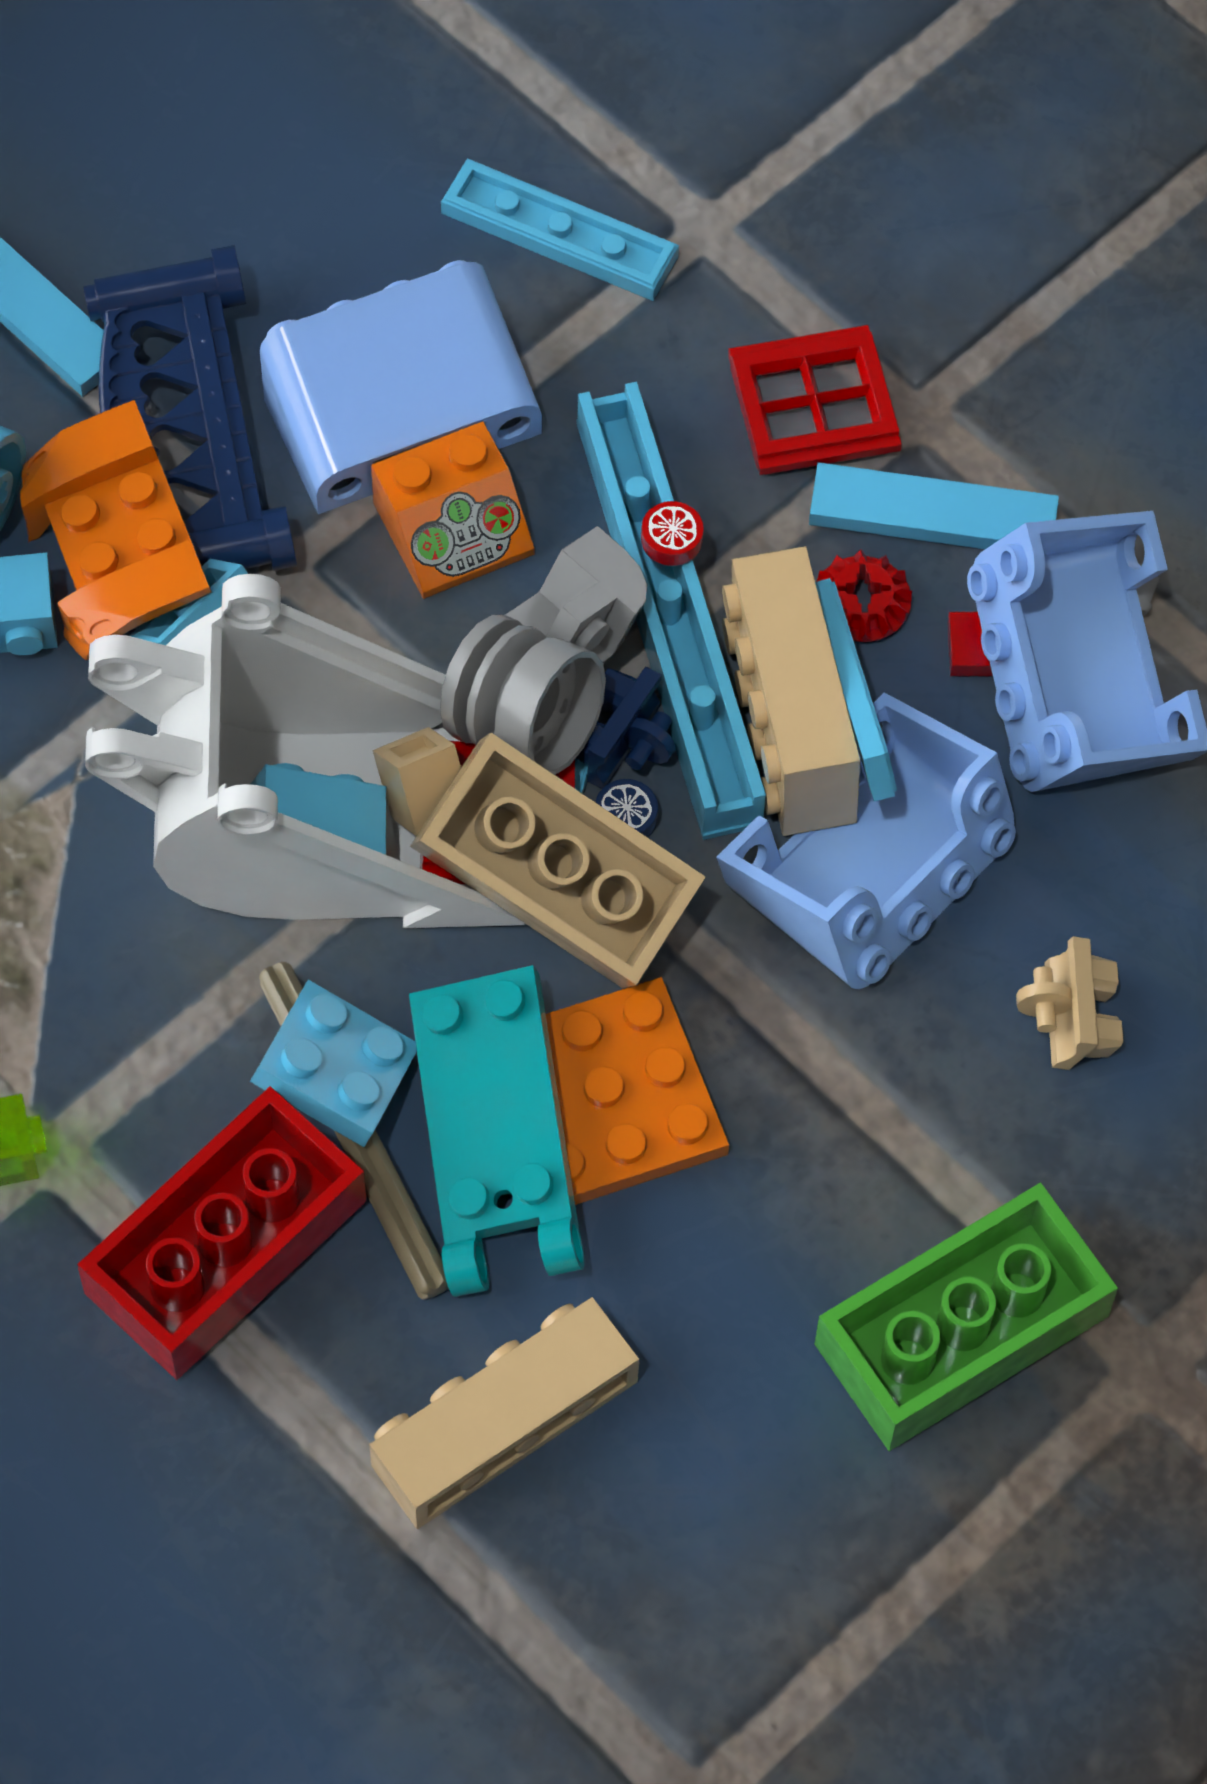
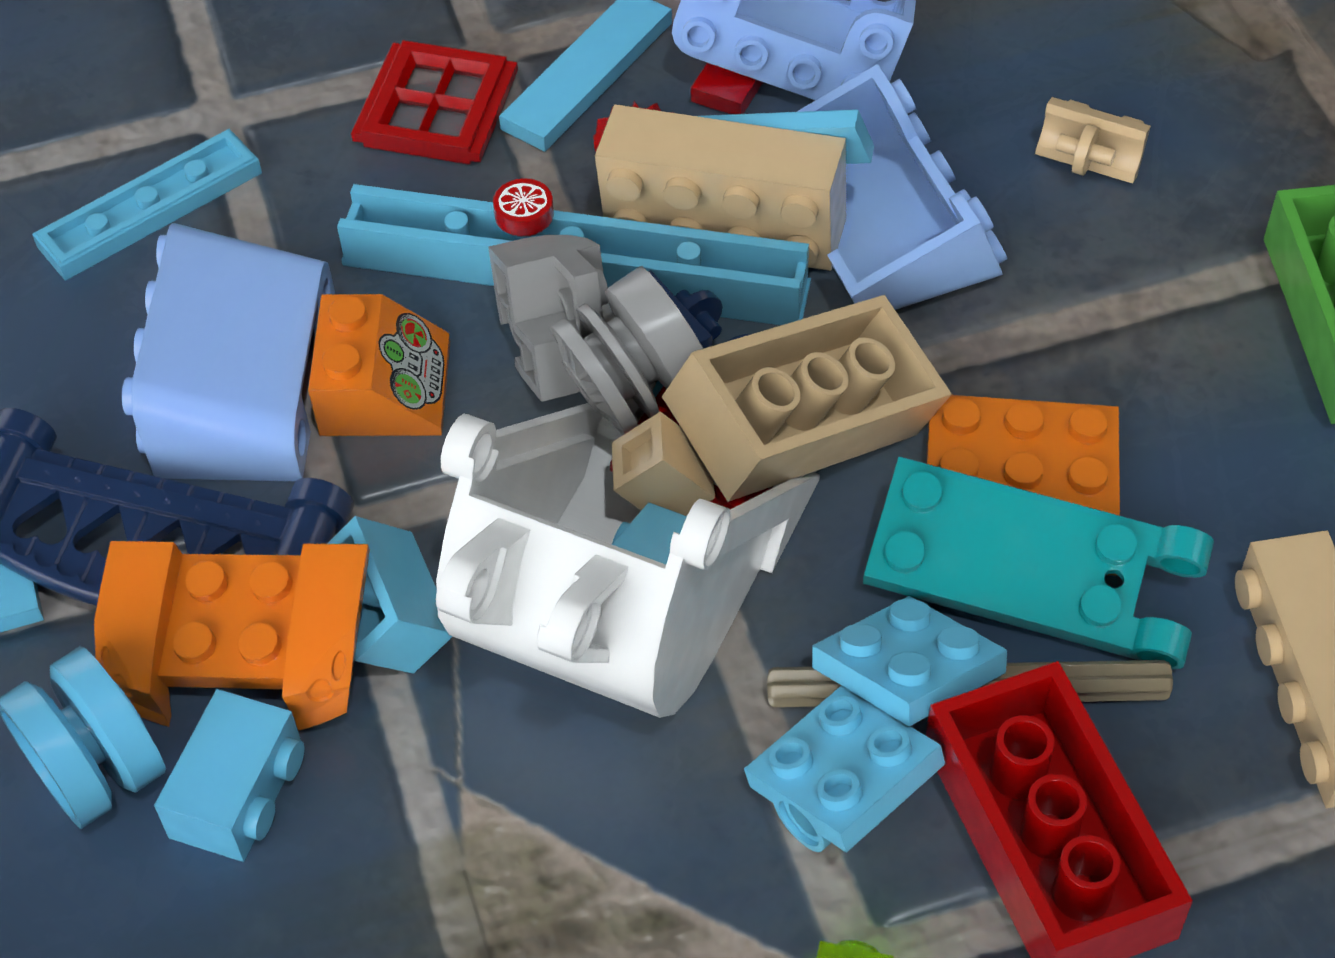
camera: 60 degrees left, 10 degrees down
(198, 1052) = (842, 770): none -> medium azure plate

